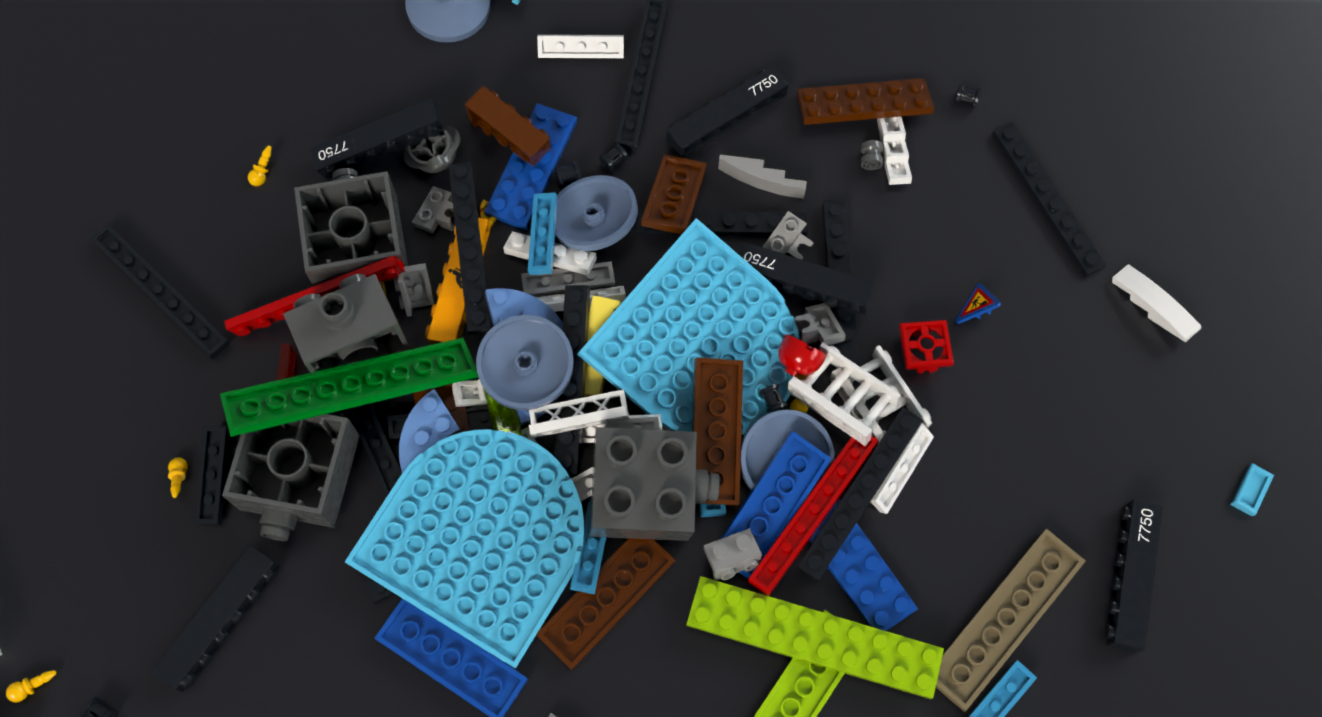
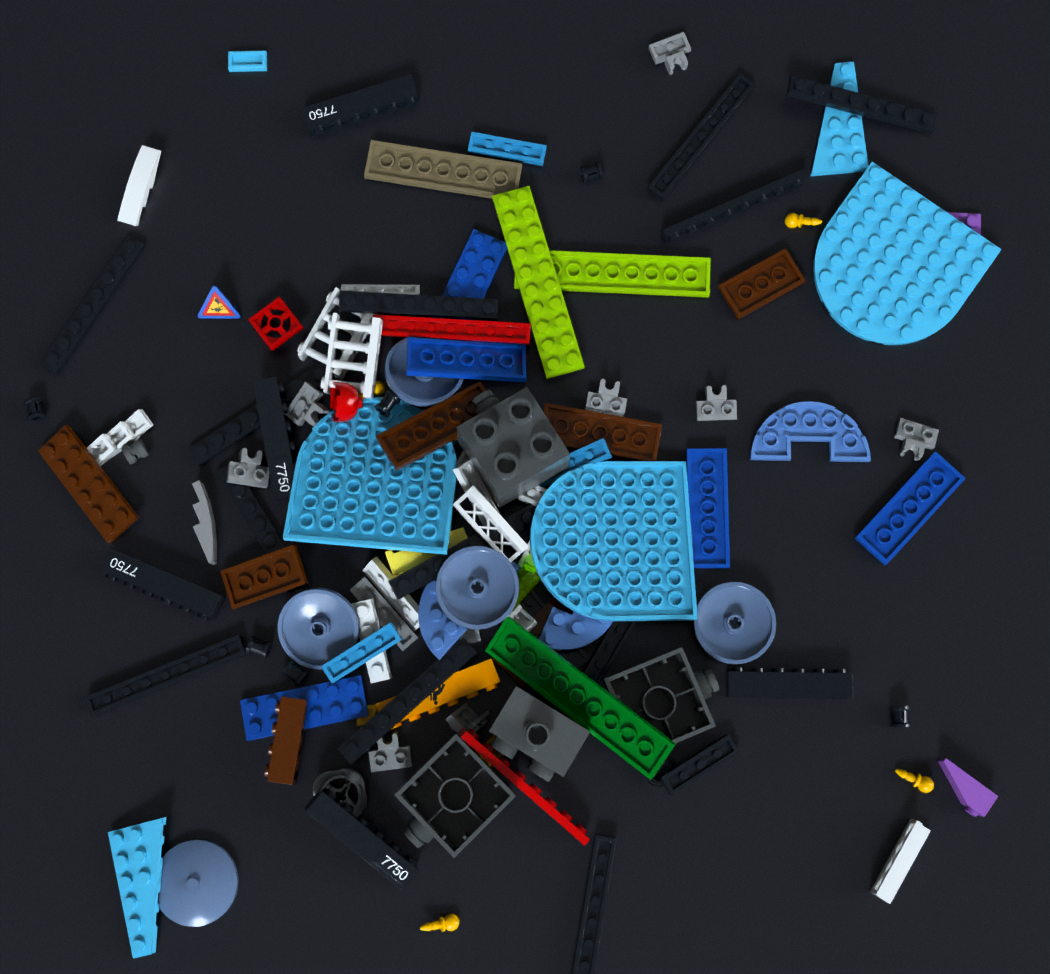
camera: 120 degrees left, 10 degrees up
(177, 473) = (709, 798): yellow bar -> none
(286, 362) = (588, 773): clear red tile -> none
(315, 603) = (734, 623): none -> sand blue dish
(580, 46) = (172, 740): white plate -> none
(636, 628) = (606, 400): none -> light grey plate
(733, 554) = (518, 363): light grey bracket -> none

